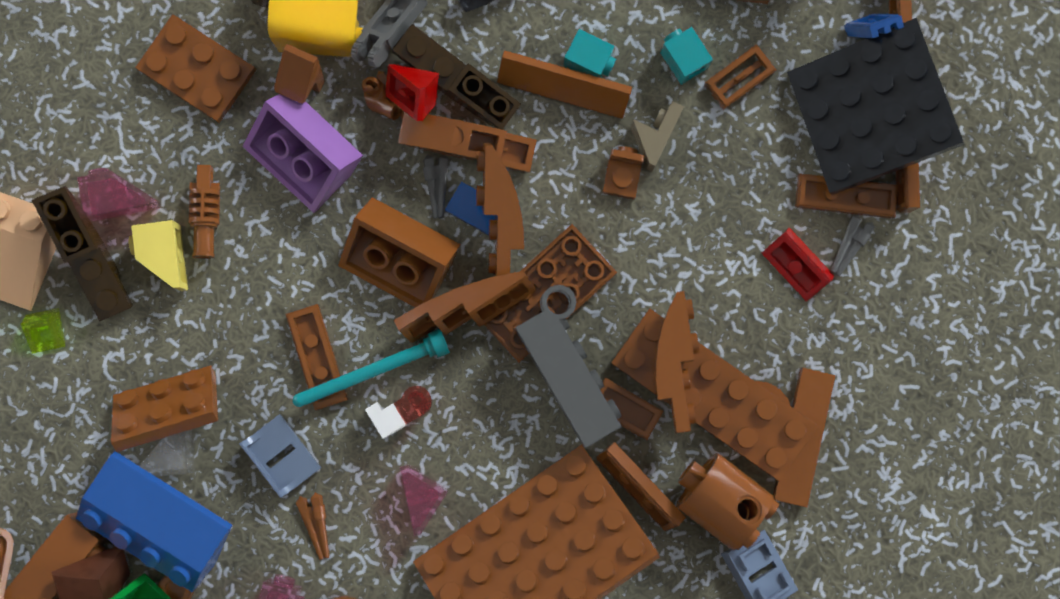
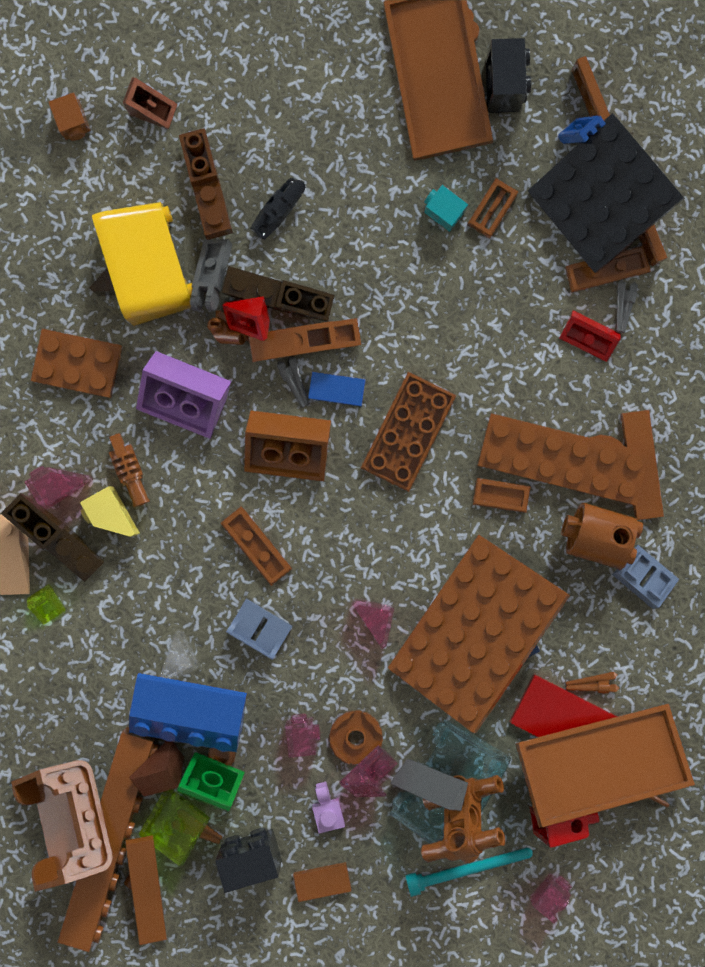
camera: 20 degrees left, 5 degrees up
(164, 408) = (160, 627): dark orange plate -> none
(298, 74) = (158, 340): dark orange slope -> none
(314, 520) = (302, 665): dark orange piece -> none
(413, 404) = (342, 554): leg -> none
(432, 345) = (340, 503): teal piece -> none
(474, 301) = (361, 458): dark orange slope -> none
(499, 199) = (349, 376): dark orange slope -> none
(563, 84) = (361, 267): dark orange tile -> none
(565, 372) = (447, 486): dark grey hinge -> none
(590, 55) = (372, 237): teal brick -> none
(623, 172) = (432, 317): dark orange bracket -> none
(640, 487) = (534, 549): dark orange tile -> none
(653, 141) = (446, 286): dark tan slope -> none
(675, 347) = (521, 436): dark orange slope -> none

